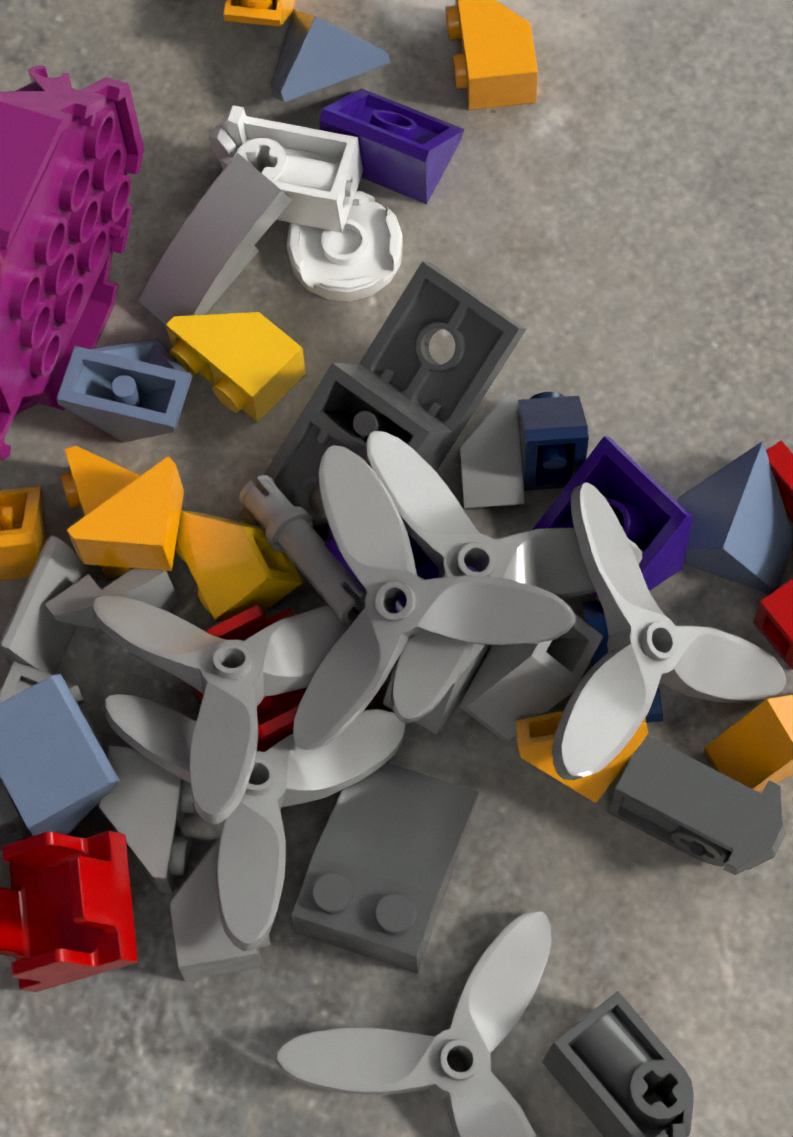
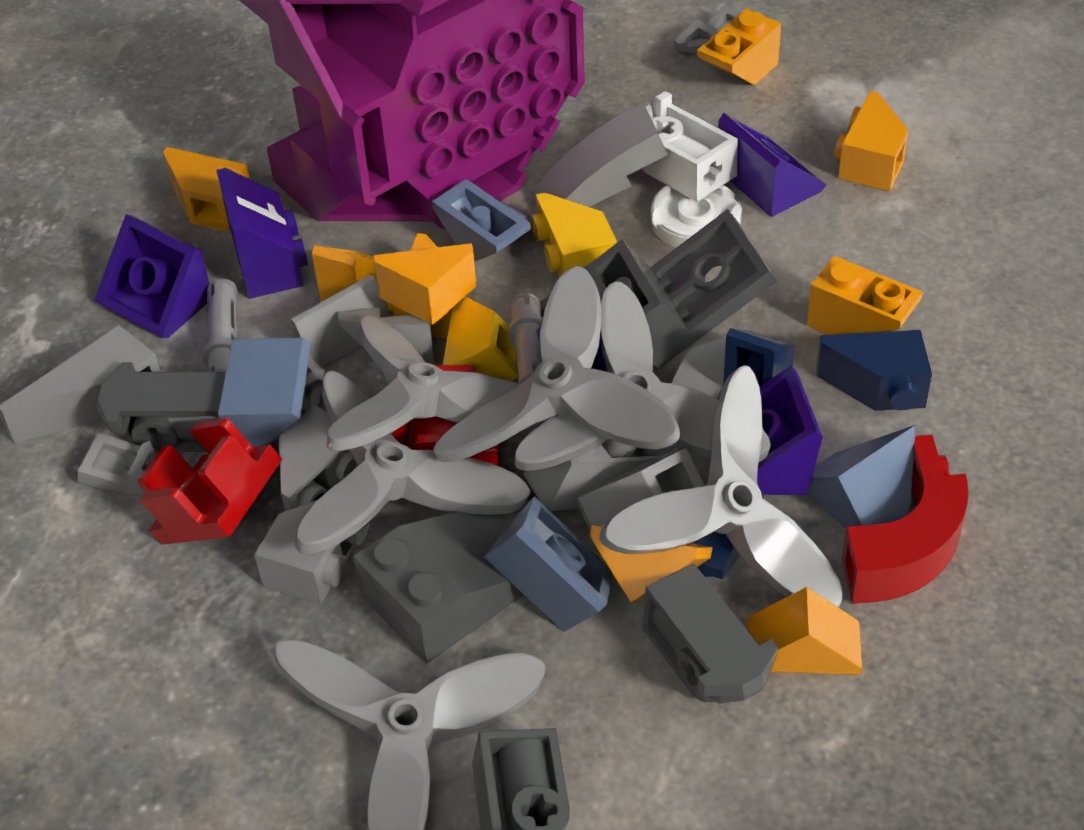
camera: 30 degrees right, 20 degrees down
(320, 56) = (754, 103): sand blue slope -> none
(495, 803) = (551, 566): none -> sand blue slope
(610, 295) = (858, 300): none -> light orange slope
(671, 370) = (877, 368): none -> dark blue slope

